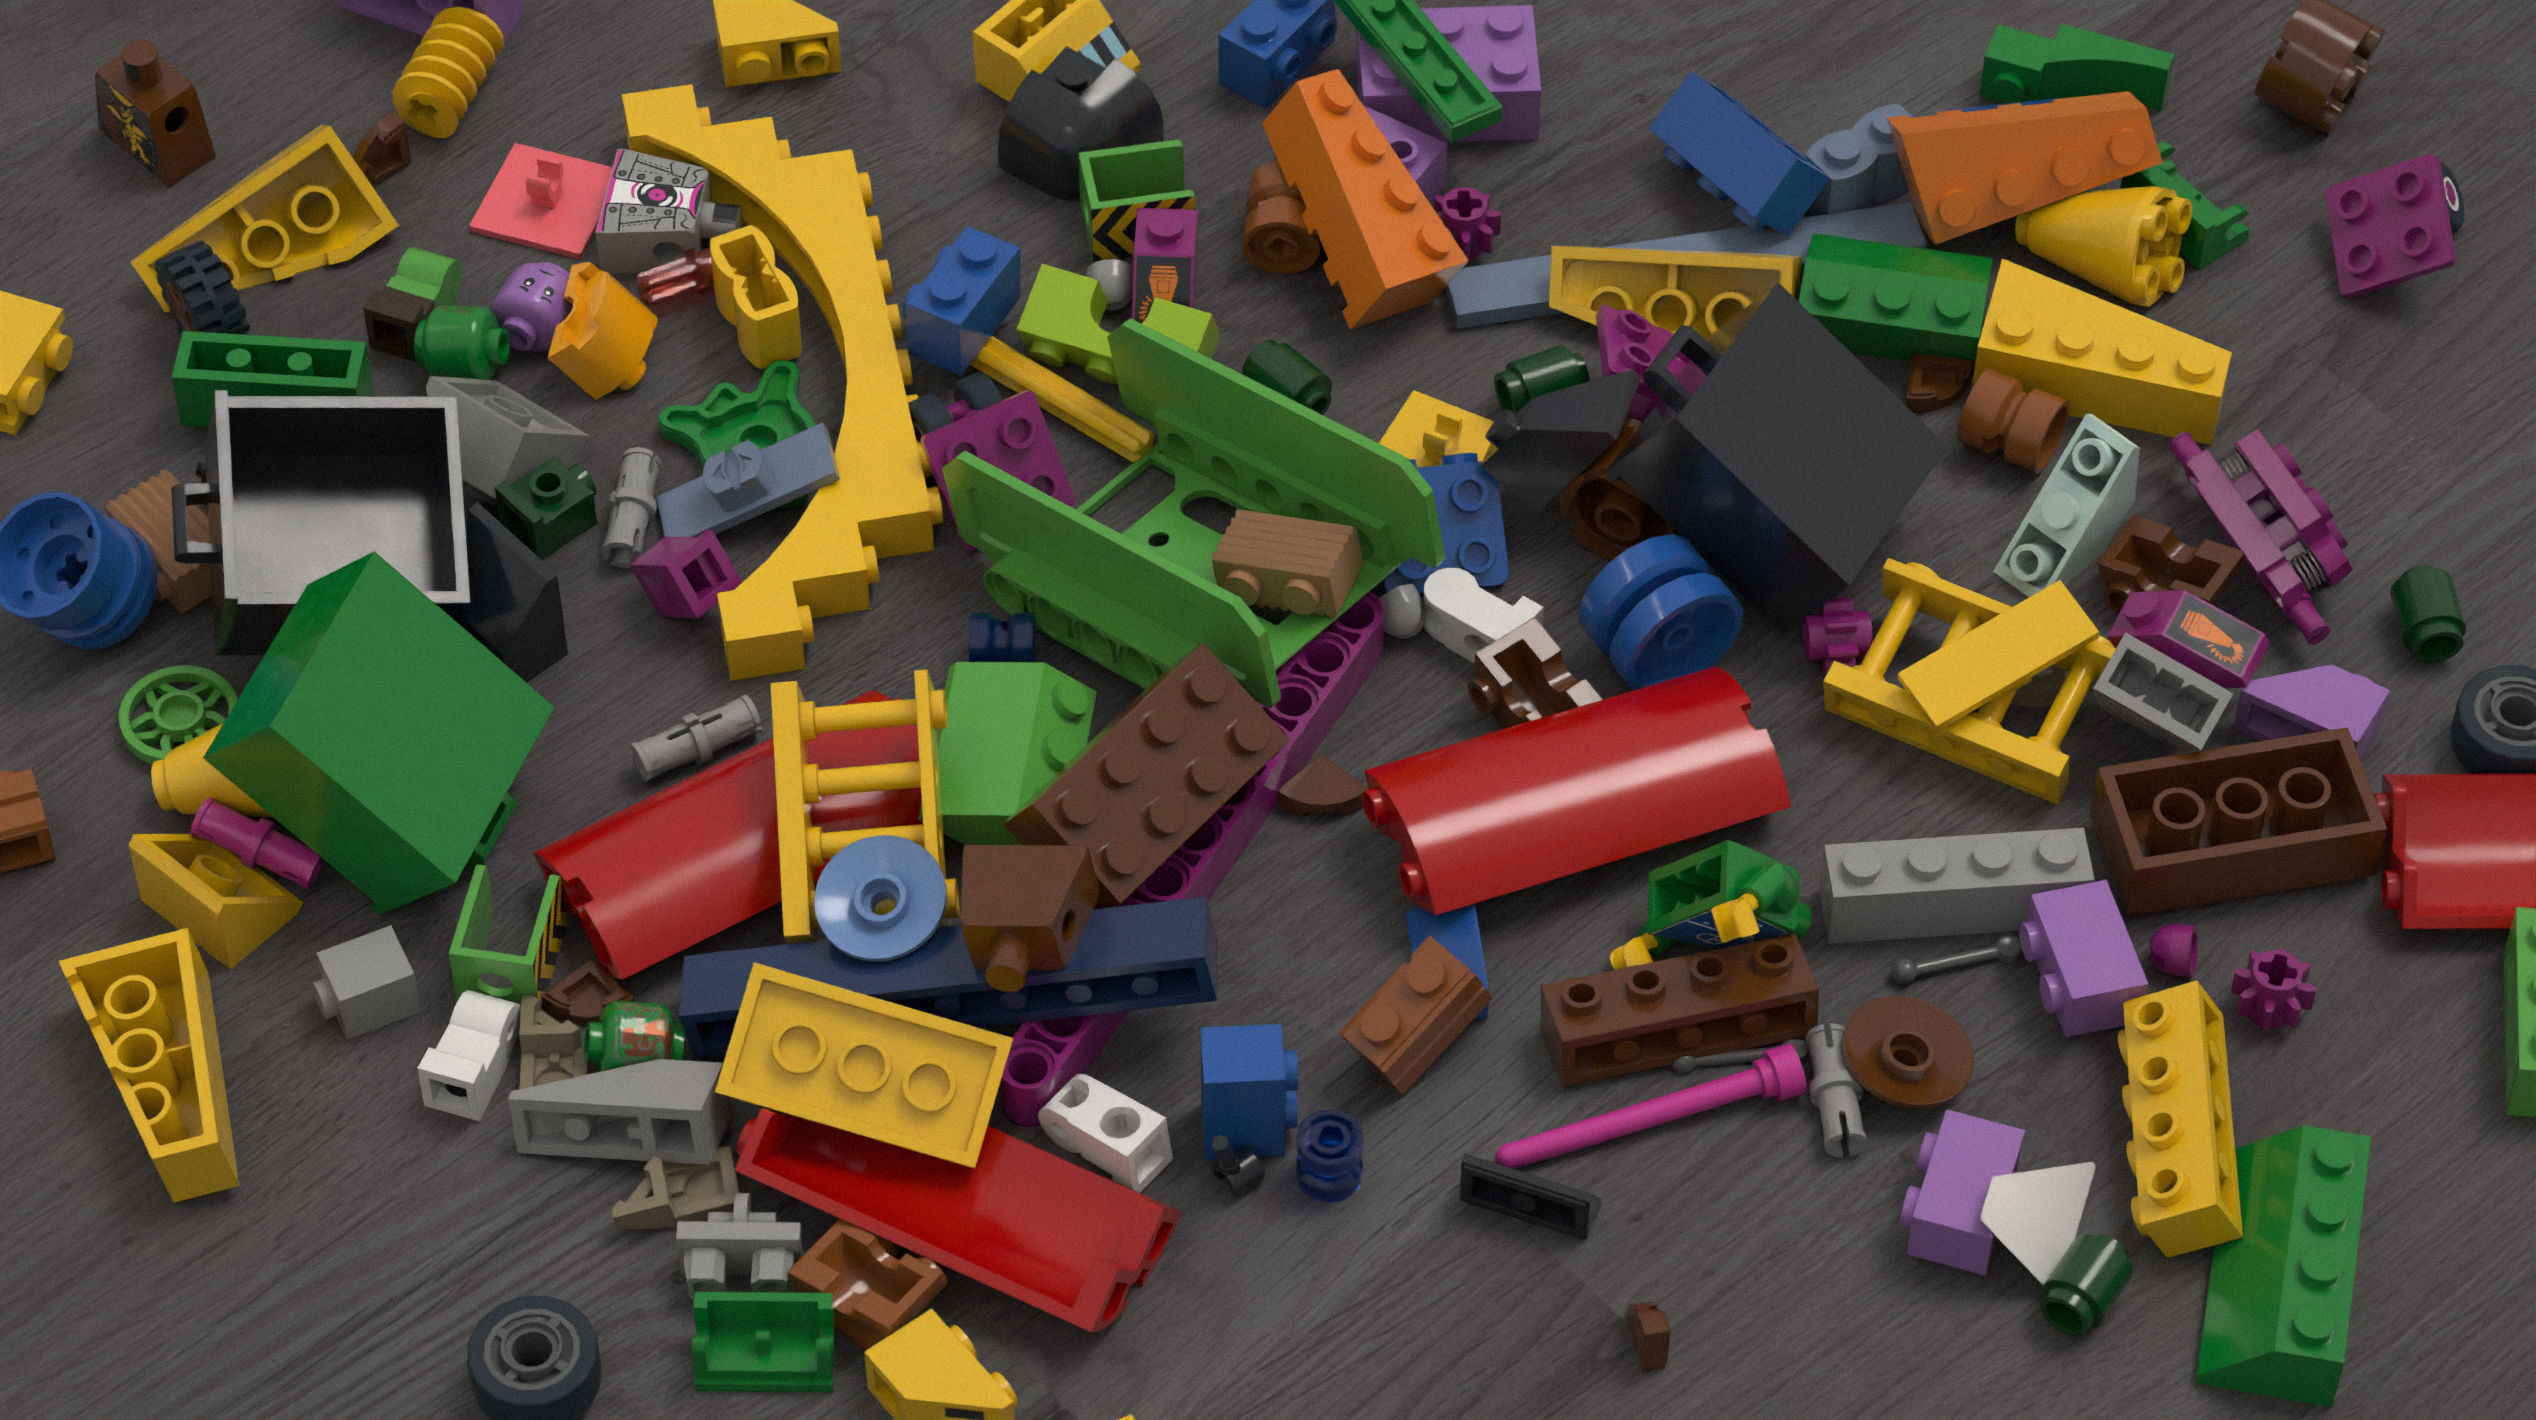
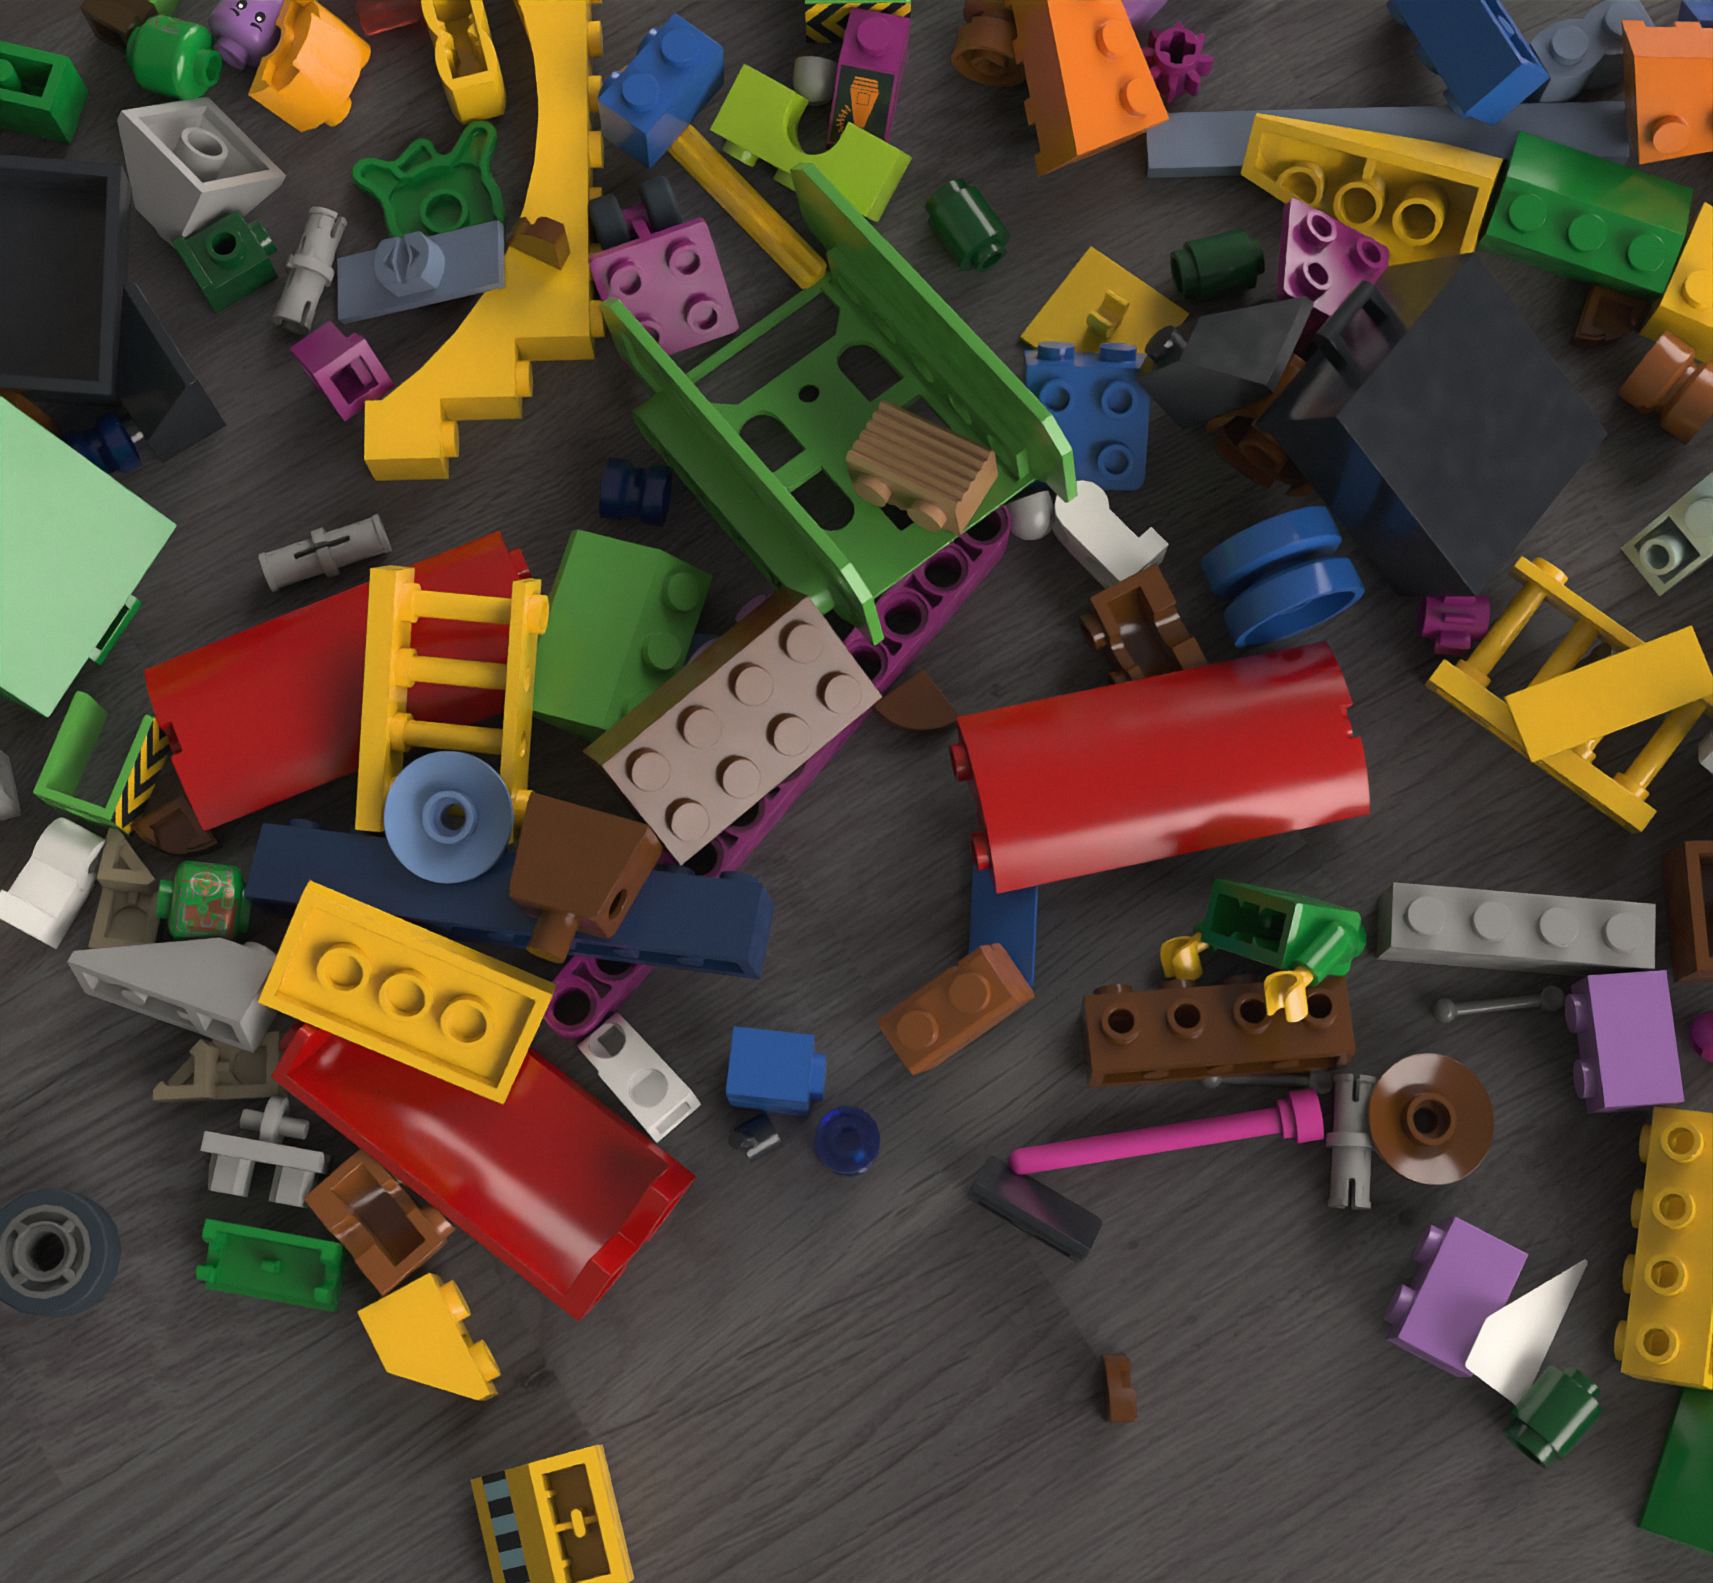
camera: 10 degrees right, 25 degrees up
(870, 431) = (542, 240): none -> reddish brown tile

